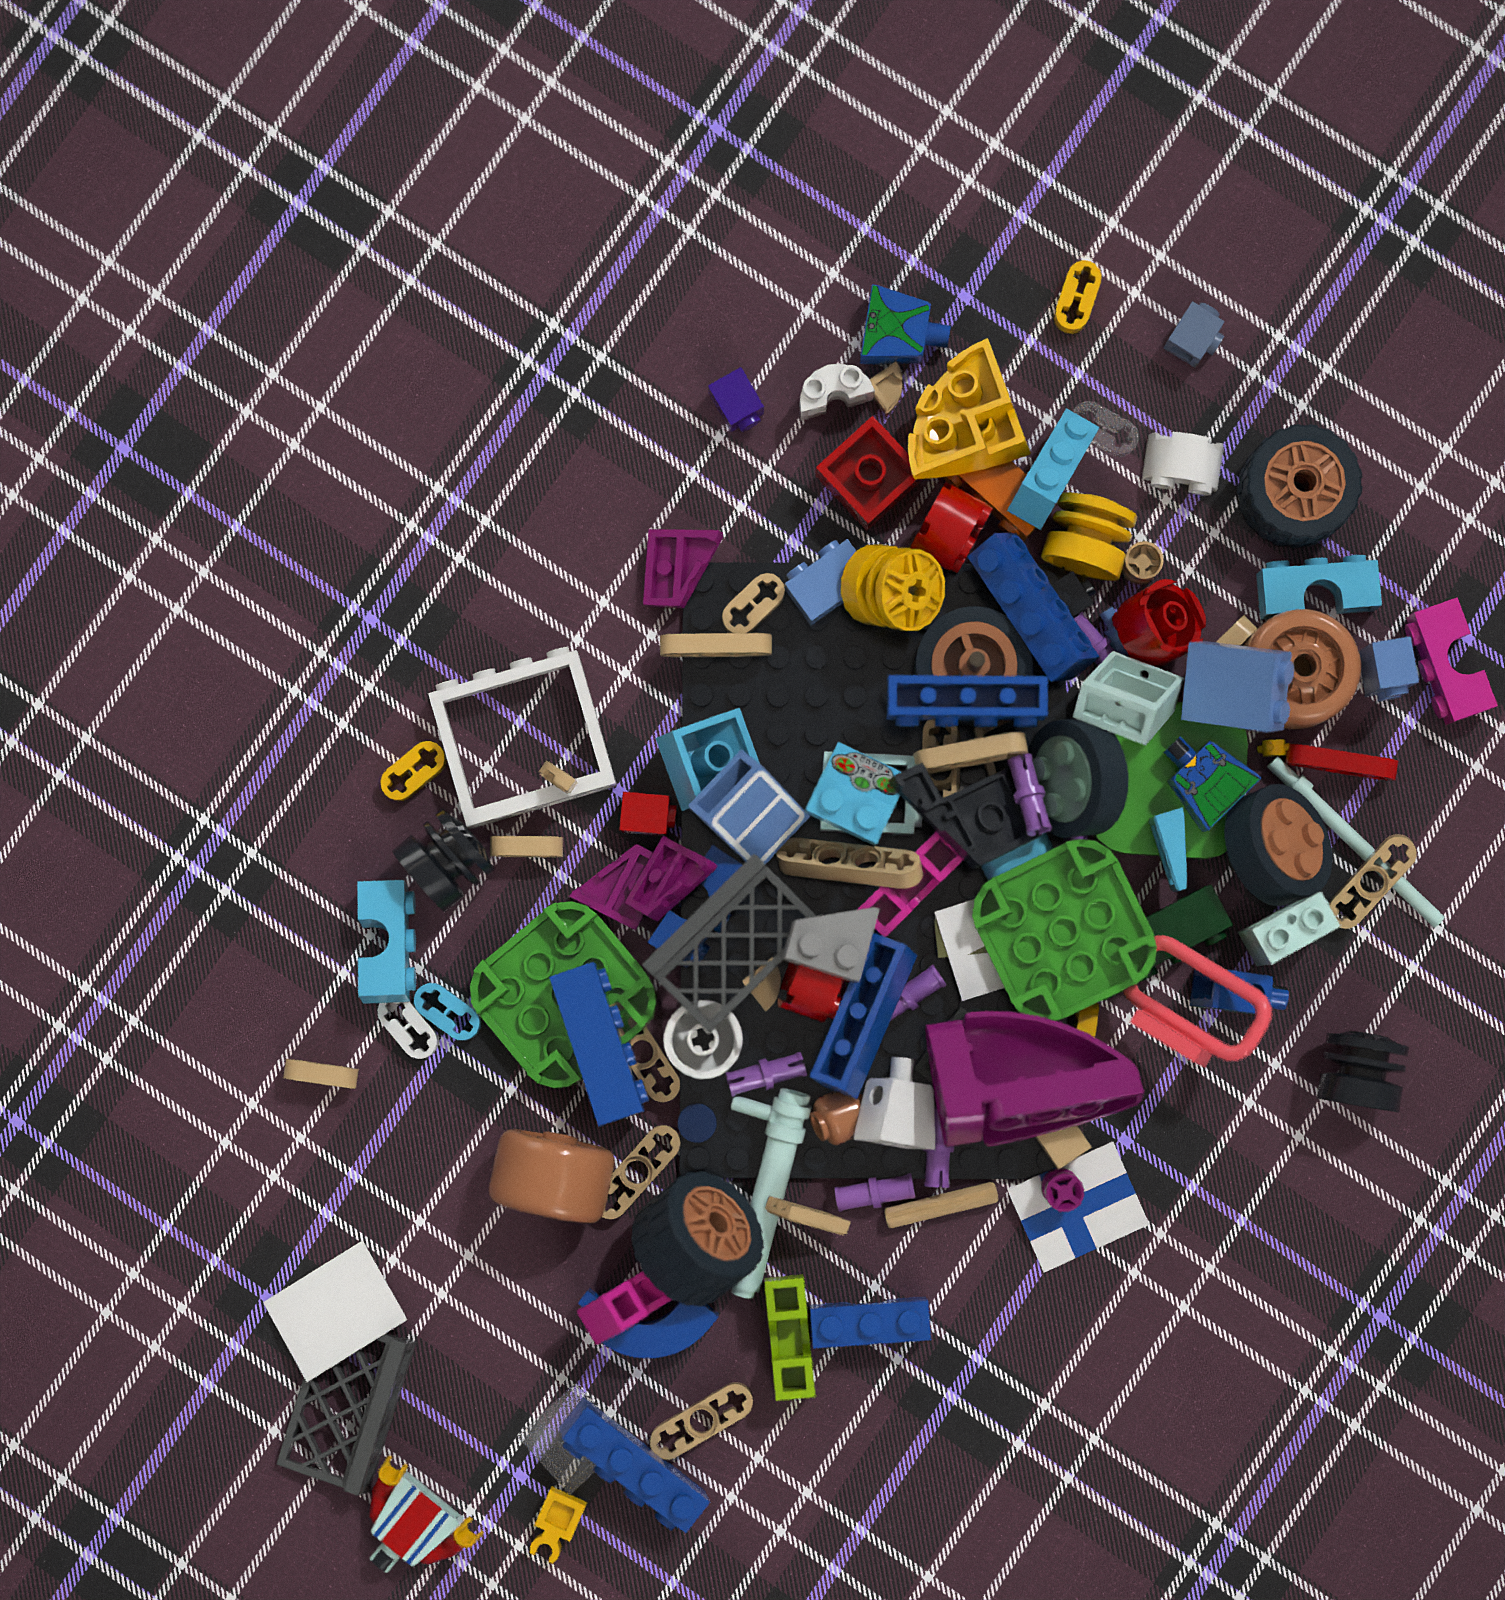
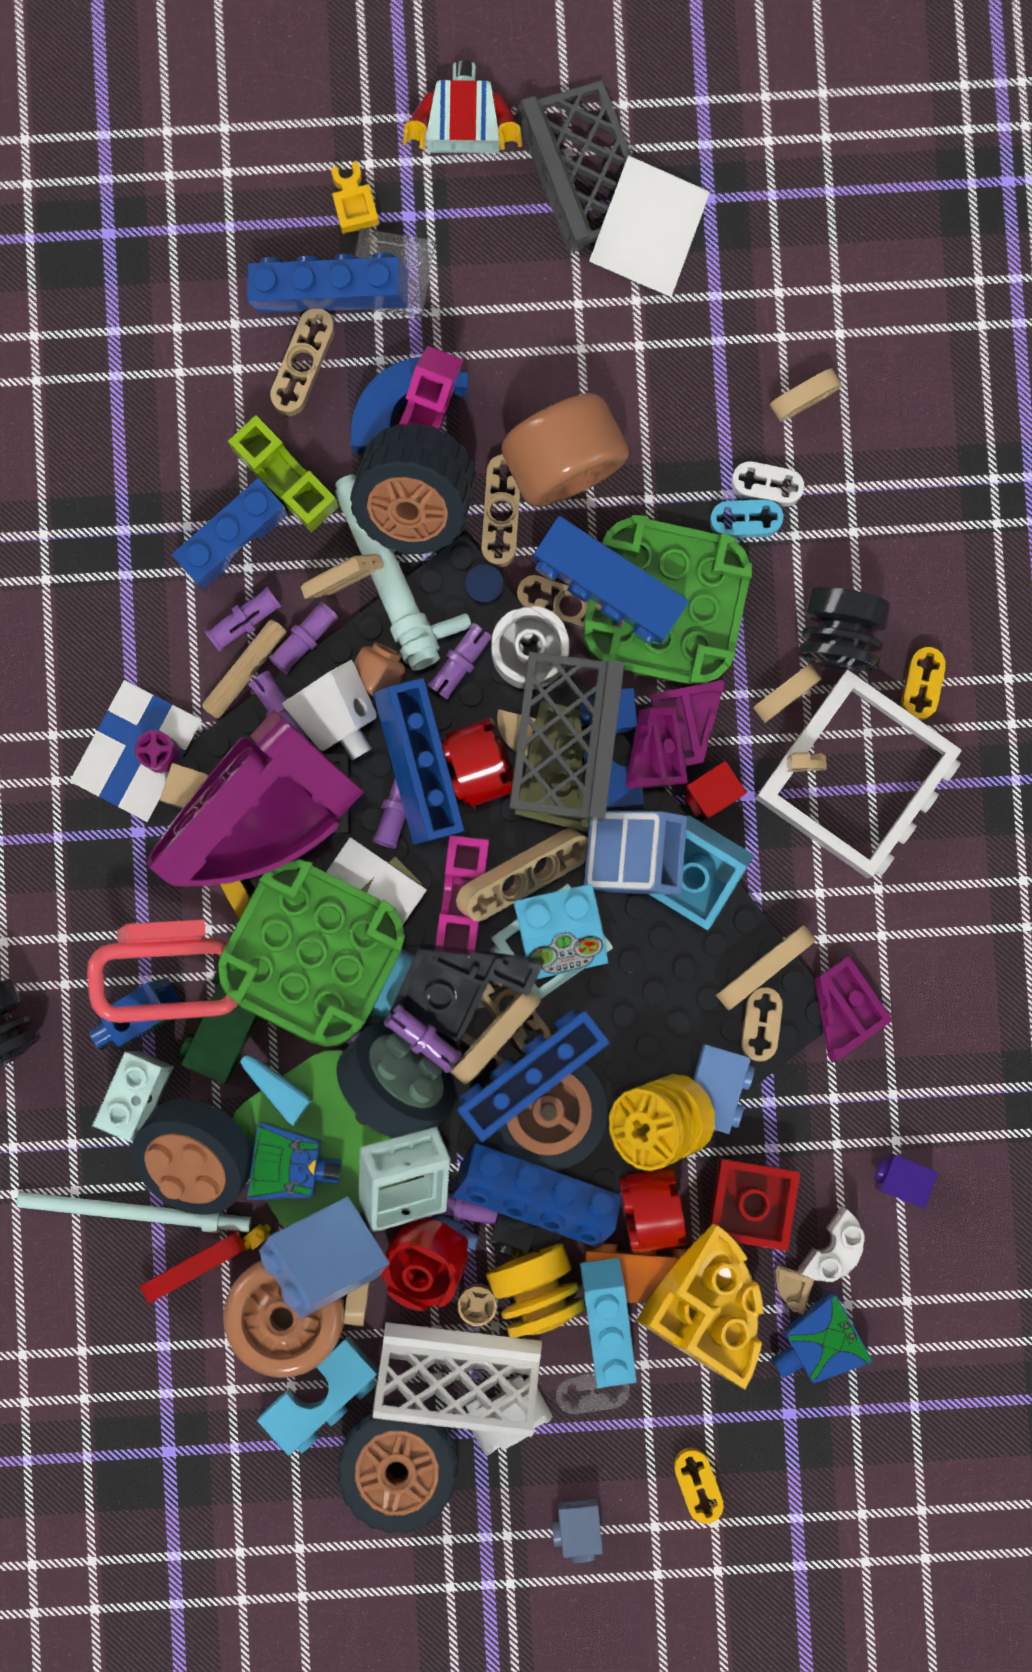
camera: 140 degrees right, 0 degrees up
(387, 975) = (814, 510): medium azure arch -> none
(764, 922) = (553, 772): none -> olive wing
(832, 942) = (487, 796): light grey wing -> none
(911, 1245) = (243, 619): none -> medium lavender pin
(1179, 535) = (460, 1353): none -> white fence
(1388, 668) = (212, 1372): medium blue brick -> none
(1388, 882) = (82, 1216): tan beam -> none
(1455, 693) = (197, 1431): dark pink arch -> none

